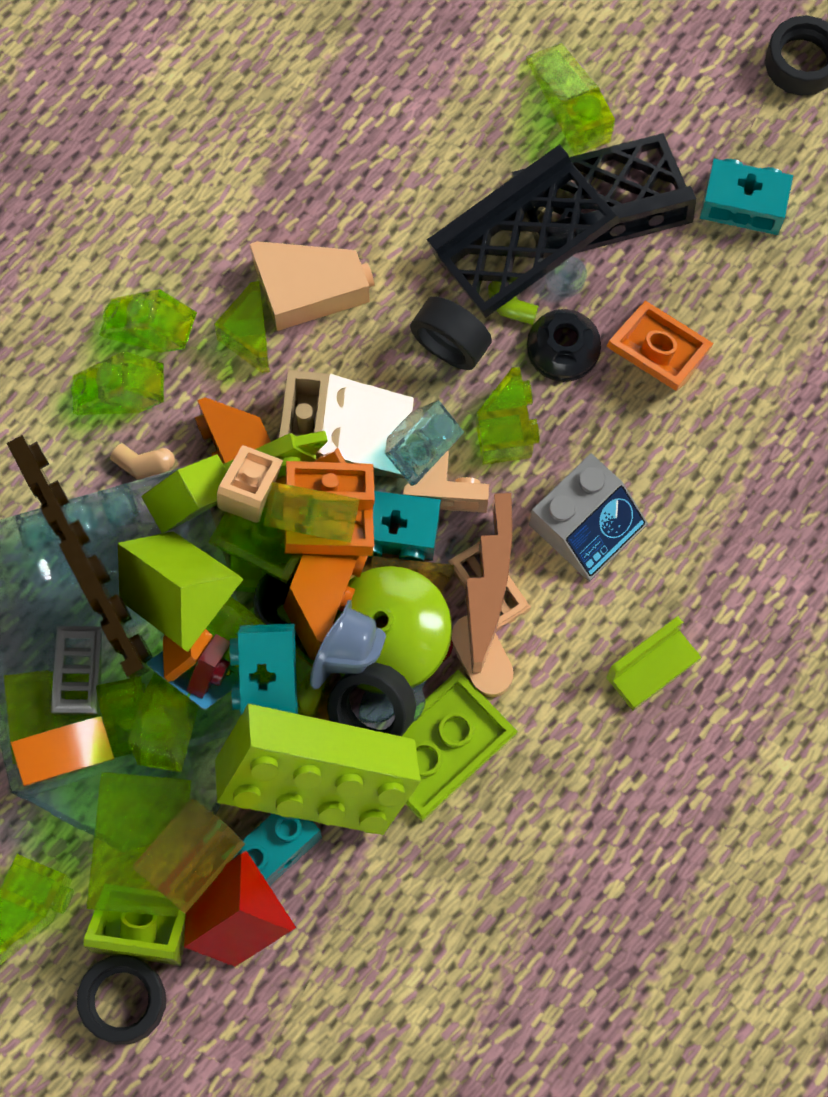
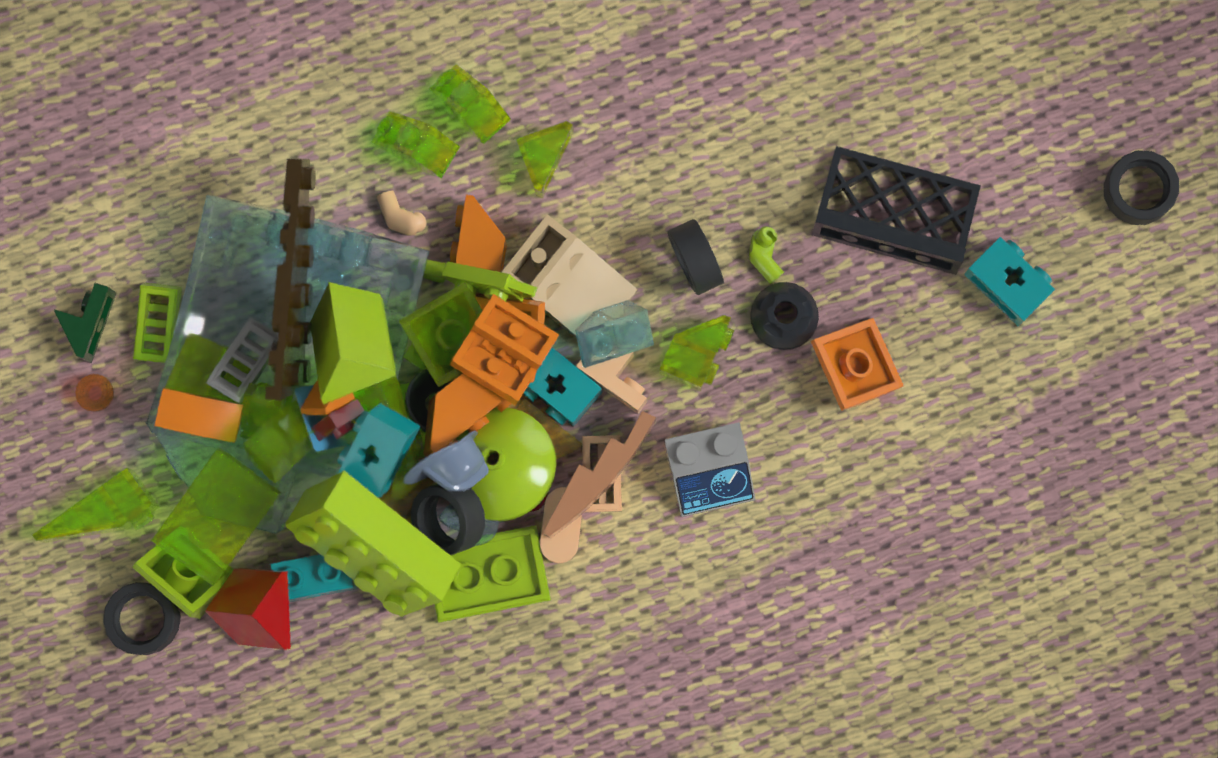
camera: 40 degrees right, 10 degrees up
(185, 493) = (408, 273): lime slope -> none
(188, 855) = (243, 549): clear yellow panel -> none
(248, 483) = (454, 294): light nougat slope -> none
(309, 281) = (614, 144): light nougat slope -> none
(311, 512) = (483, 349): clear neon green slope -> none
(505, 211) = (806, 177): black fence -> none
(567, 278) = (823, 259): clear light blue tile -> none
(572, 98) = (925, 109): clear neon green slope -> none
(653, 664) = (685, 613): lime panel -> none

